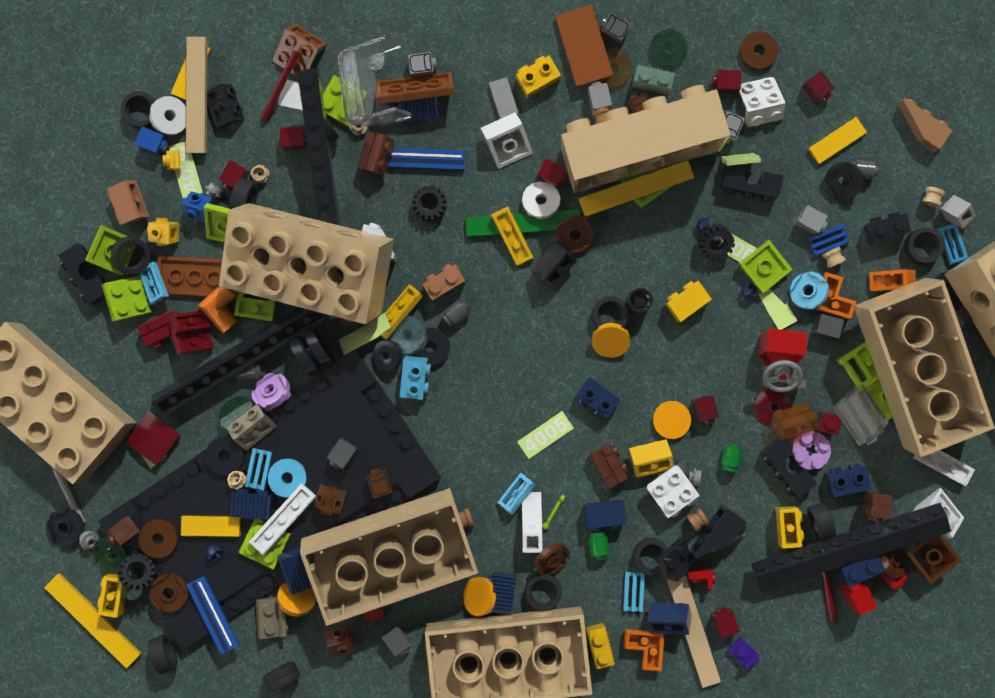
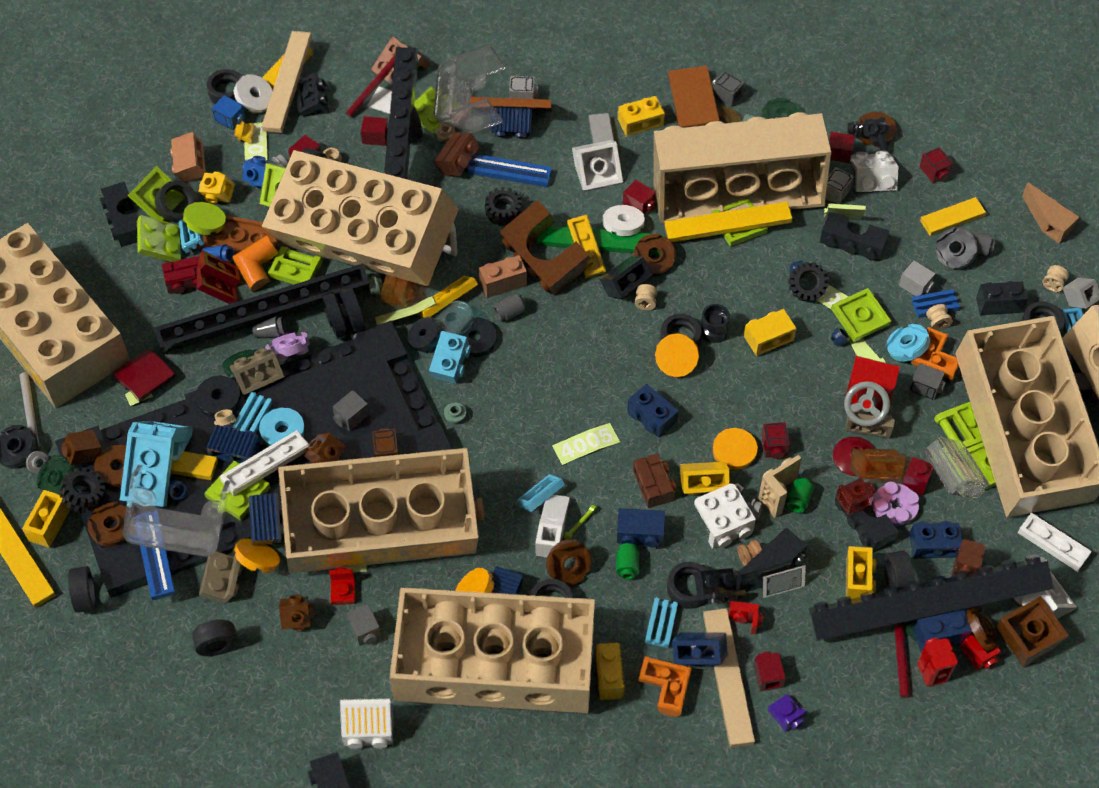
camera: 15 degrees right, 30 degrees down
(161, 270) = (204, 218): none -> lime tile
(184, 302) = (222, 251): none -> blue cone
(185, 528) = (153, 447): none -> medium azure bracket
(220, 592) = (169, 528): none -> clear windscreen
(433, 422) = (454, 417): none -> sand green plate
(451, 241) = (553, 273): none -> reddish brown arch
(574, 281) = (646, 297): none -> tan wheel
(707, 456) = (774, 484): none -> tan bracket
(757, 58) = (872, 129): none -> black piece
(774, 464) = (853, 501): none -> clear red brick

